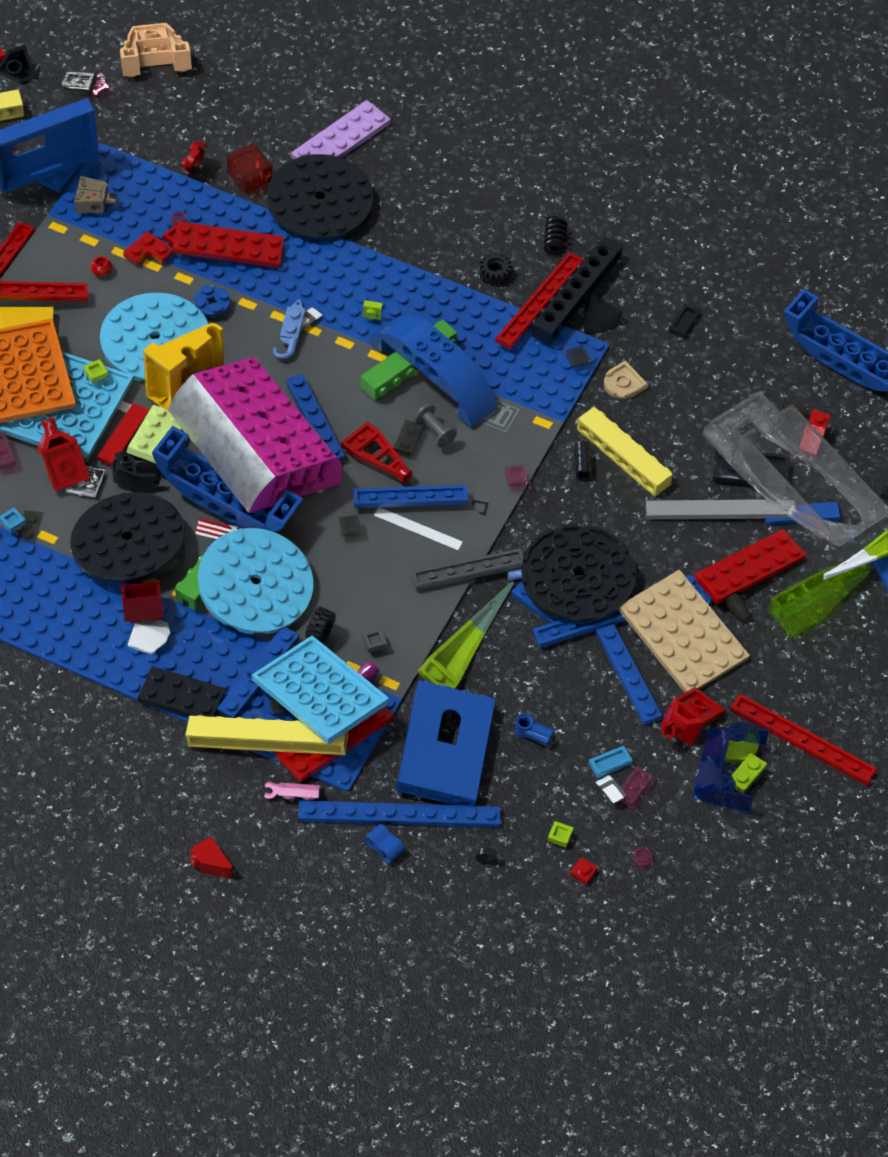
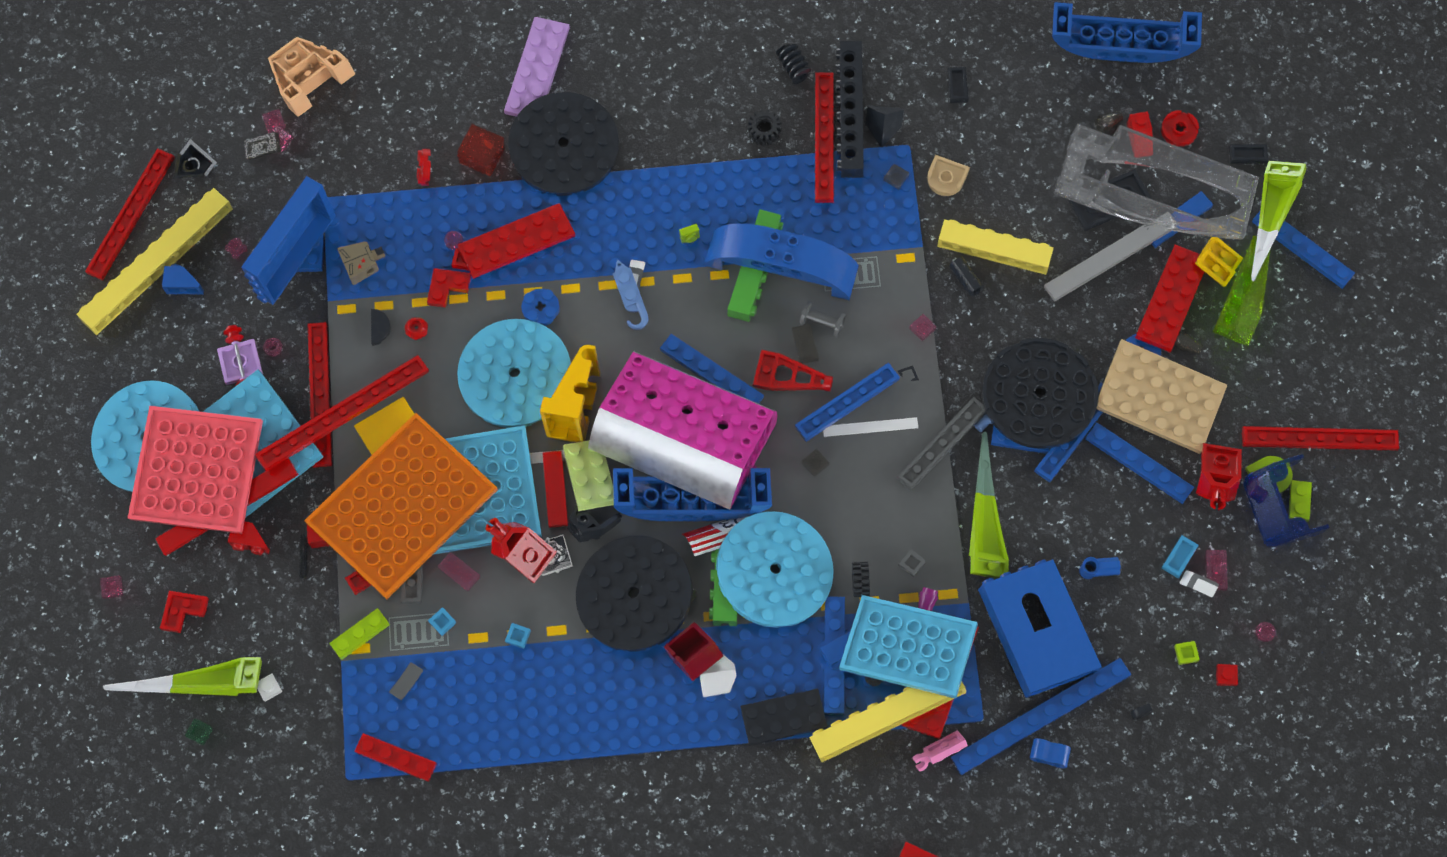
camera: 25 degrees left, 15 degrees up
(29, 531) = (537, 635): clear smoke plate -> none
(73, 251) = (379, 326): none -> black tile
(95, 371) = (491, 442): lime plate -> none
(103, 67) = (273, 119): none -> clear pink plate
(810, 557) = (1219, 261): none -> yellow slope
(861, 442) = (1184, 120): none -> red plate

